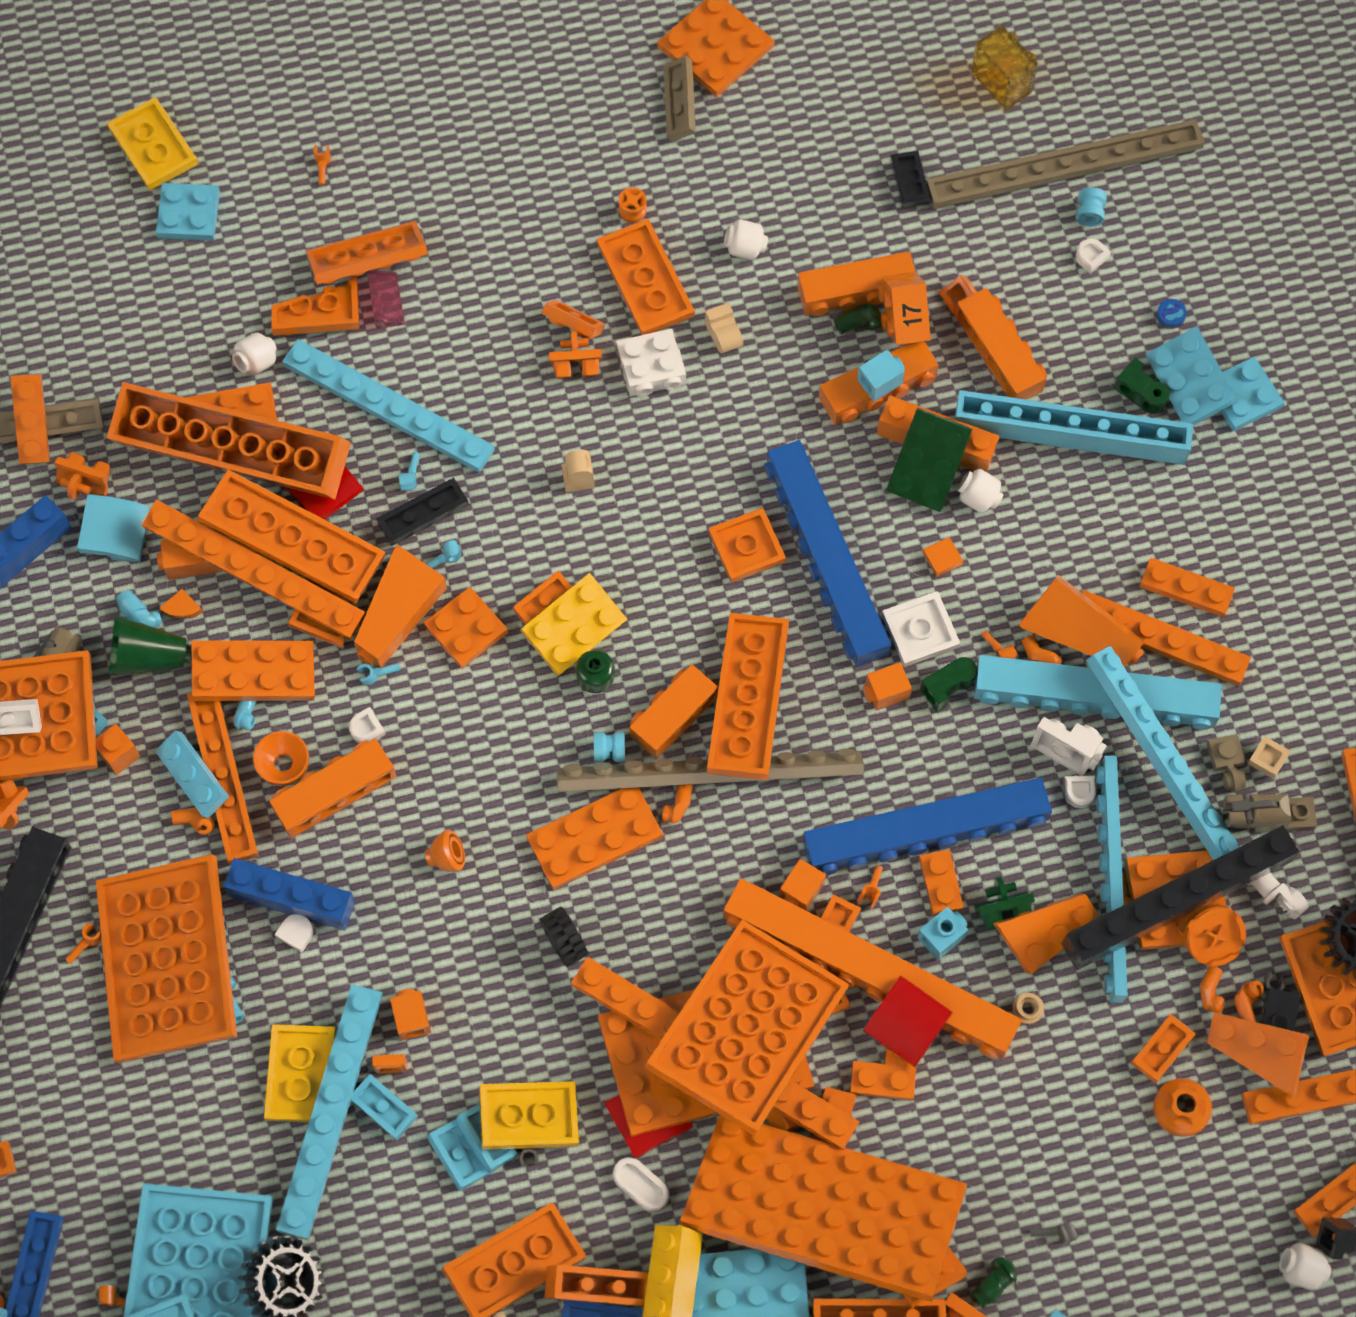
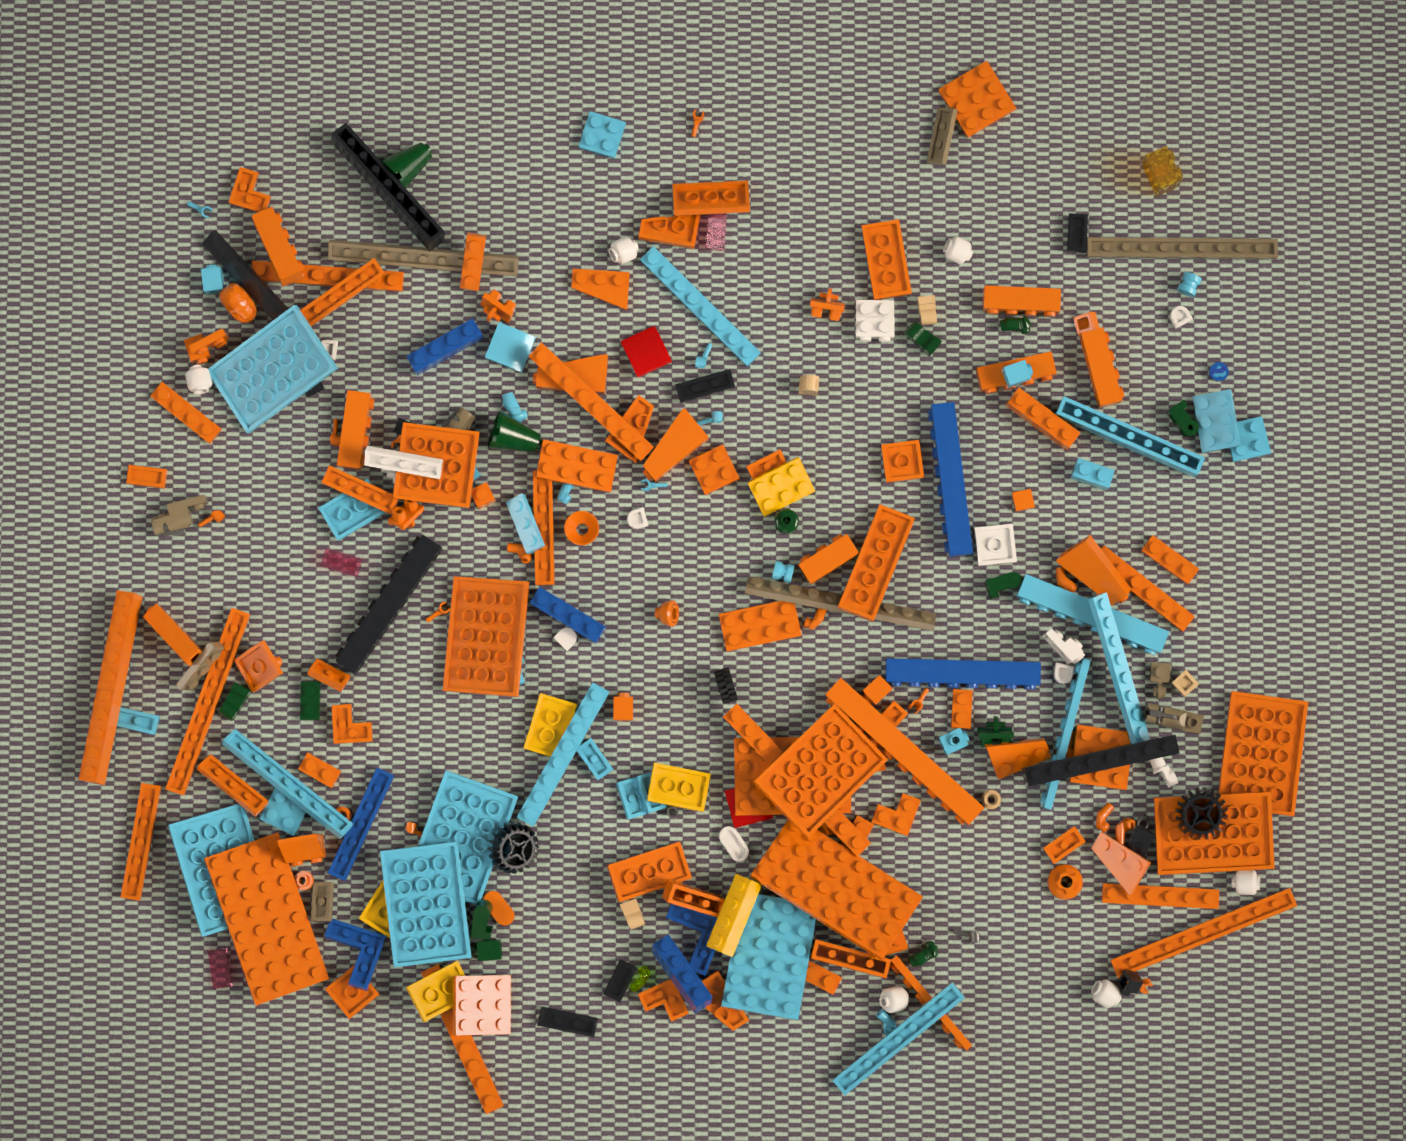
camera: 15 degrees right, 15 degrees up
(152, 143) = (589, 80): yellow plate -> none
(181, 606) = (541, 410): orange tile -> none
(229, 440) = (594, 311): orange brick -> none
(291, 536) = (619, 386): orange plate -> none
(333, 787) = (609, 554): orange brick -> none
(390, 1063) = (604, 734): orange tile -> none
(564, 315) = (832, 278): orange plate -> none
(635, 198) = (892, 202): orange wheel -> none
(729, 369) = (922, 338): none -> dark green leg
(887, 686) = (963, 577): orange brick -> none
(905, 308) = (1045, 330): orange brick -> none
(907, 1021) = (916, 791): red slope -> none
(929, 459) = (1031, 436): dark green plate -> none
(980, 490) = (1059, 463): white head -> none
(1006, 652) = (1043, 575): orange hand -> none
(1034, 493) = (1092, 474): none -> medium azure brick
(1214, 935) = (1115, 786): orange tile -> none

